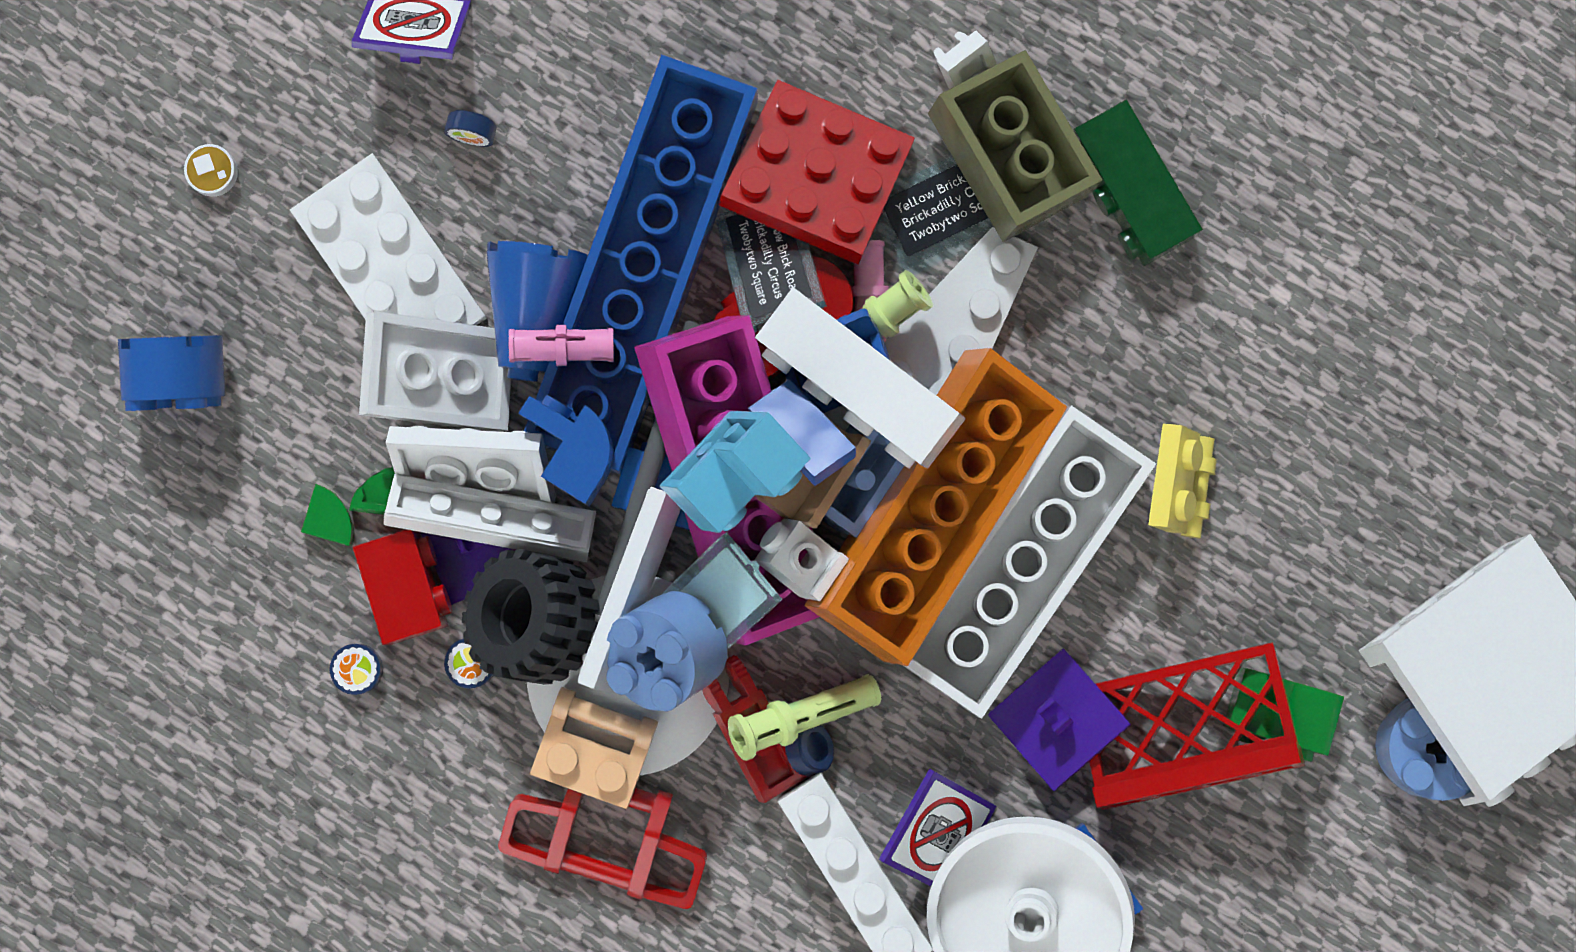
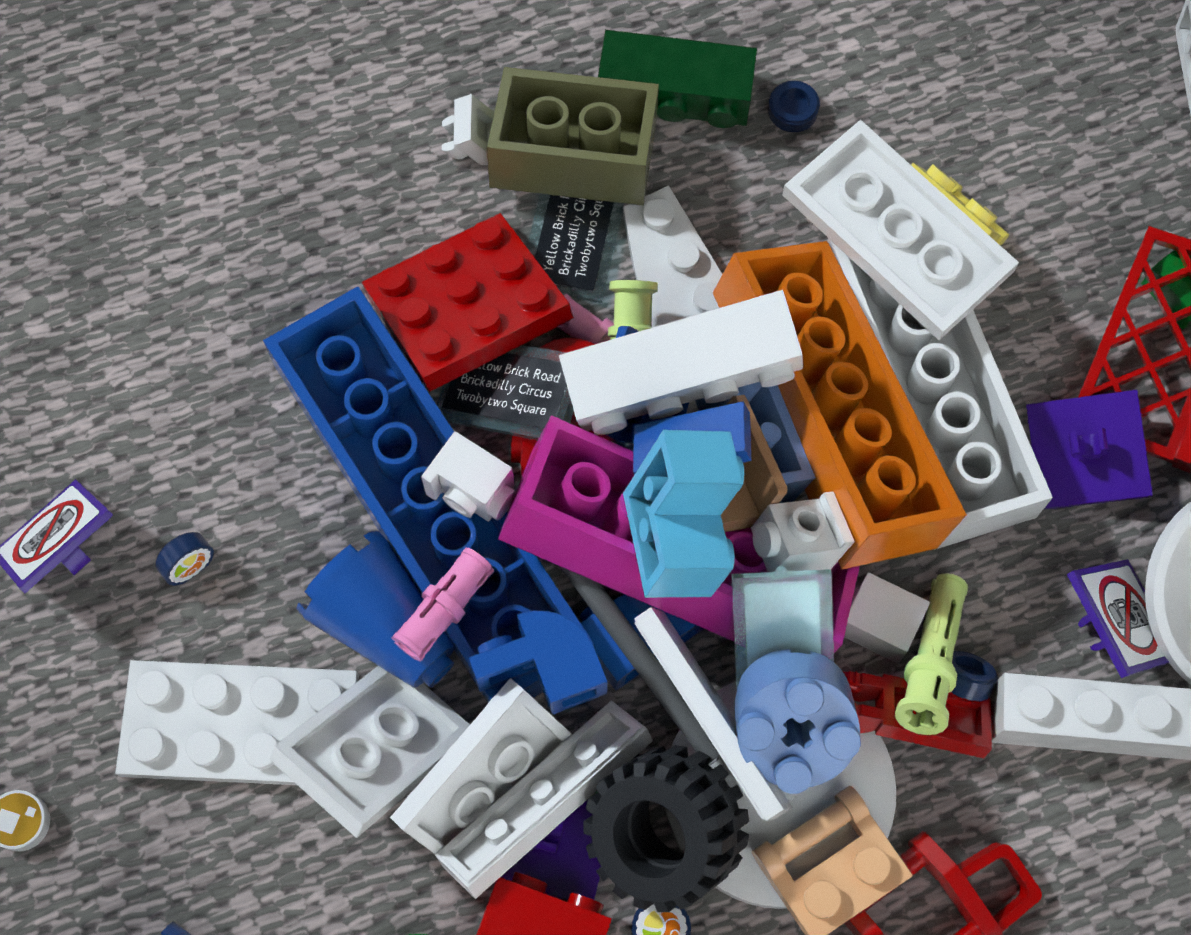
camera: 55 degrees left, 15 degrees down
(373, 493) = (437, 894): green tile -> none
(663, 294) = (470, 479): none -> white brick
(806, 657) = (884, 617): none -> white brick
(1111, 455) = (900, 229): none -> white plate
(1187, 291) = (793, 106): none -> dark blue tile

